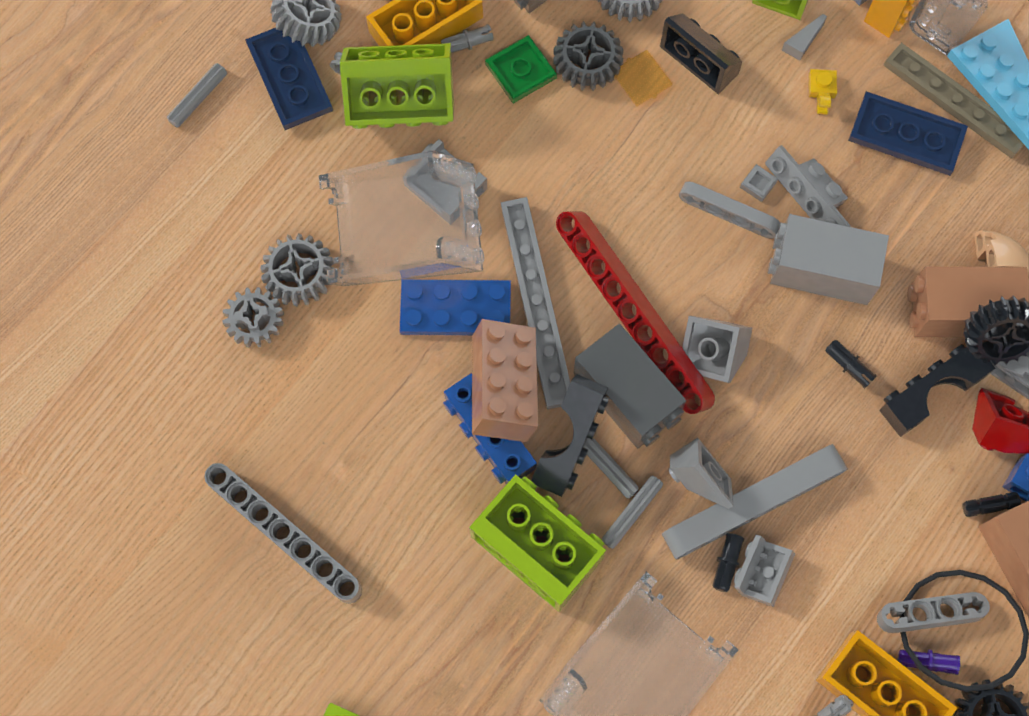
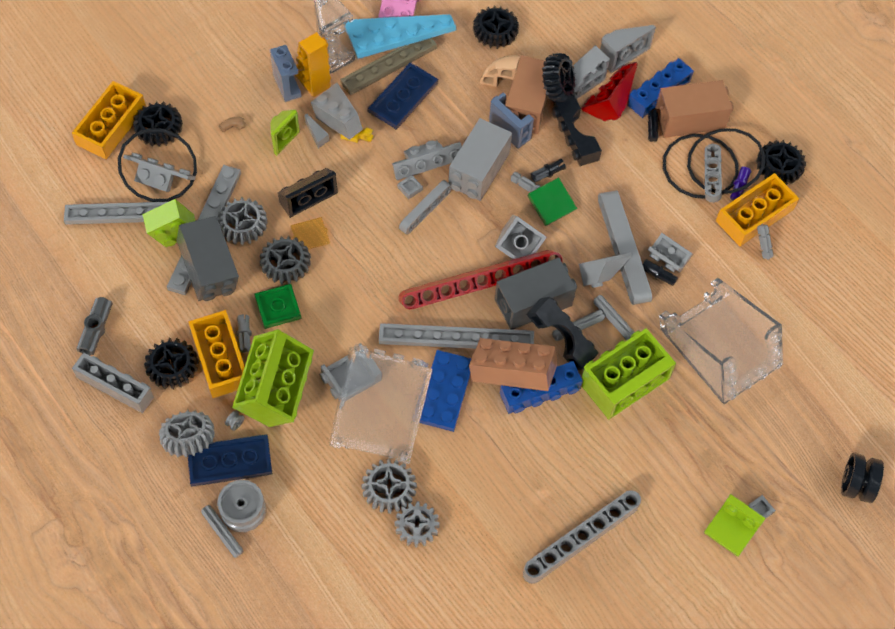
camera: 80 degrees left, 10 degrees down
(227, 103) = (242, 494): none -> light grey wheel
(797, 380) = (552, 201): none -> green tile
(818, 340) = (524, 182): none -> light grey axle
(841, 51) = (337, 112): none -> light grey wedge
(900, 306) = (504, 118): none -> sand blue panel
(1000, 578) = (697, 135): none -> black piece

